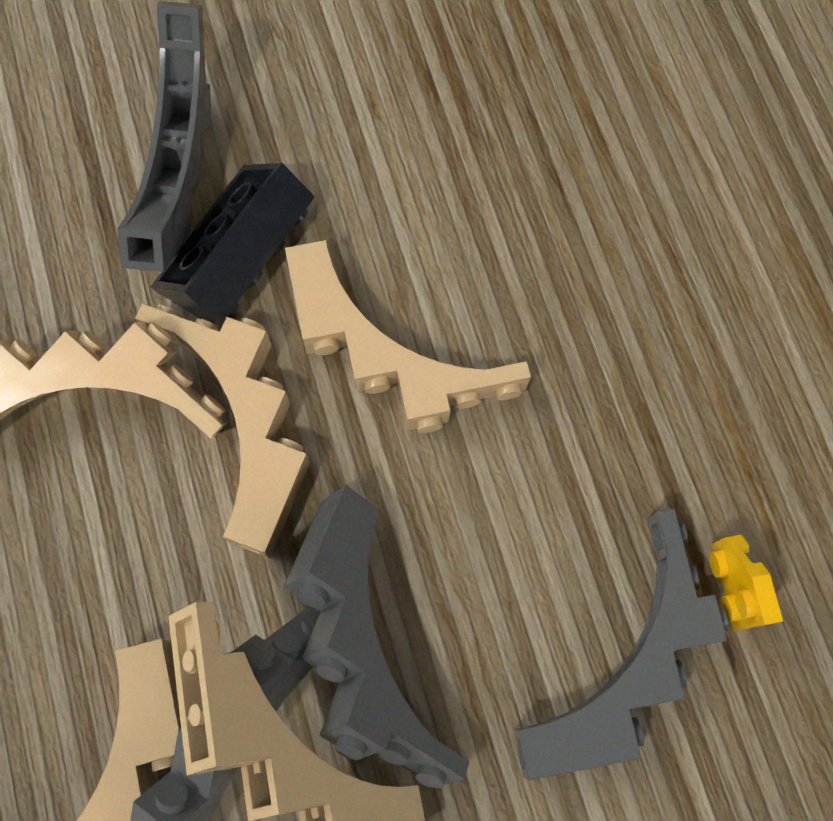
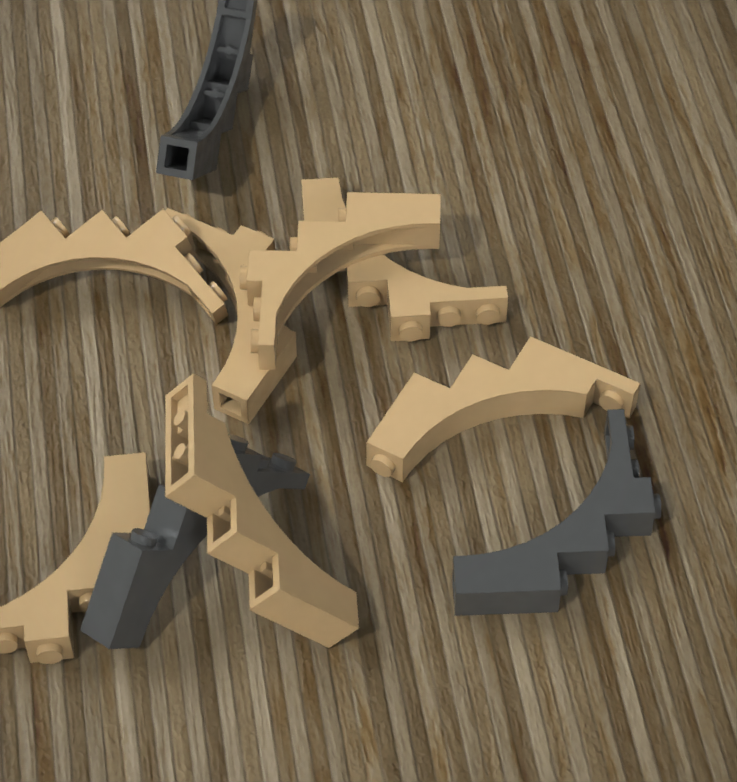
camera: 10 degrees right, 20 degrees down
(234, 241) = (258, 174): black slope -> none
(365, 312) = (364, 229): none -> tan arch
(367, 708) = (311, 472): dark grey arch -> none
(575, 472) = (537, 383): none -> tan arch
(746, 585) = (681, 479): yellow plate -> none

